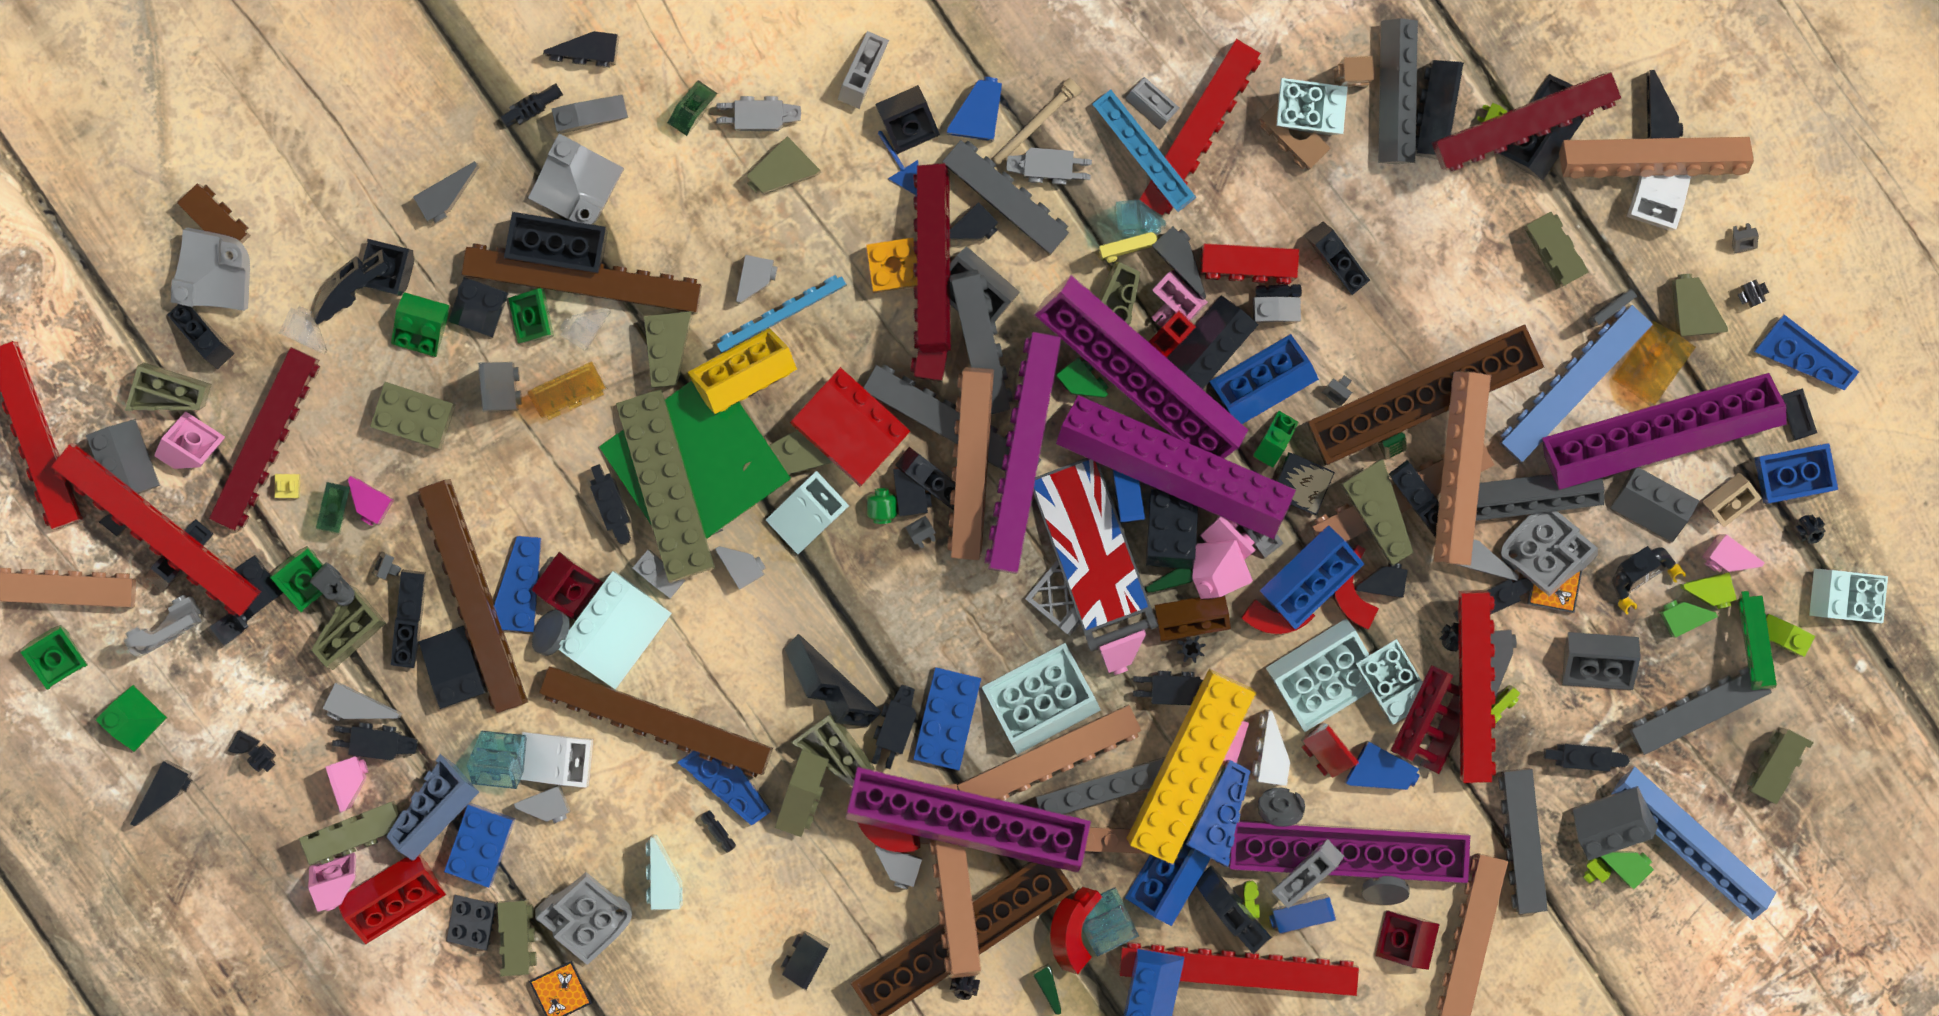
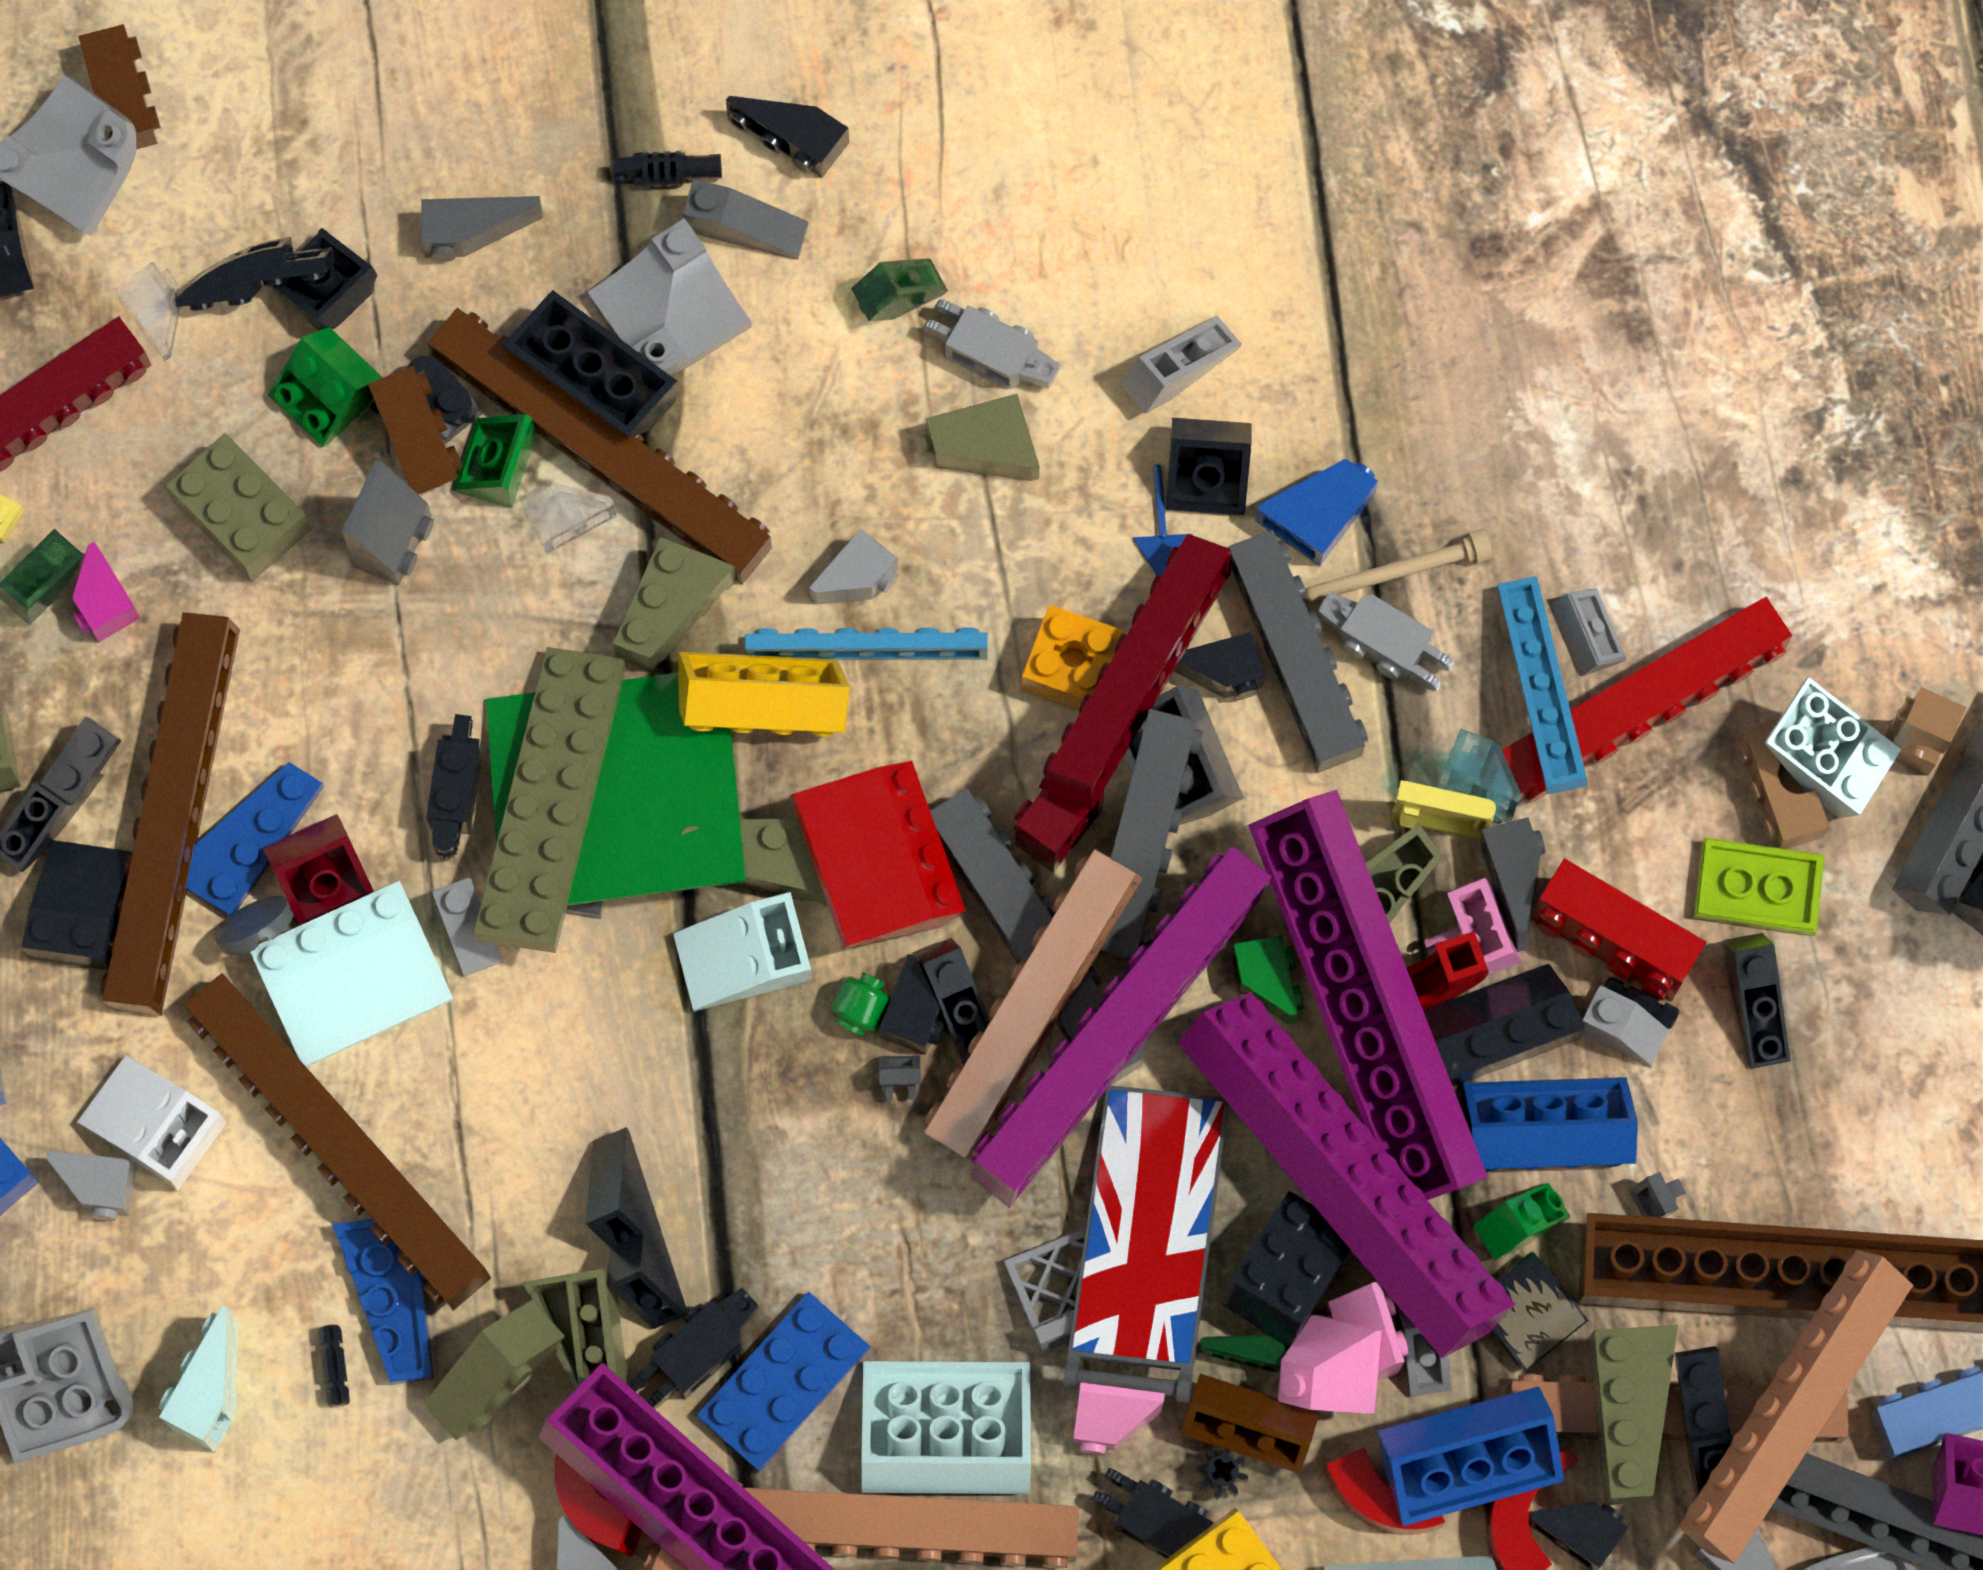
camera: 25 degrees right, 15 degrees down
(384, 566) = (68, 701): dark grey tile -> none
(483, 326) = (415, 429): none -> reddish brown brick
(497, 759) = (63, 1073): clear light blue slope -> none
(568, 391) = (486, 586): clear yellow slope -> none
(741, 565) = (598, 981): light grey slope -> none
(1128, 497) = (1245, 1187): blue slope -> none
(1308, 195) = (1759, 886): none -> lime tile
(1393, 445) = (1703, 1323): dark green slope -> none

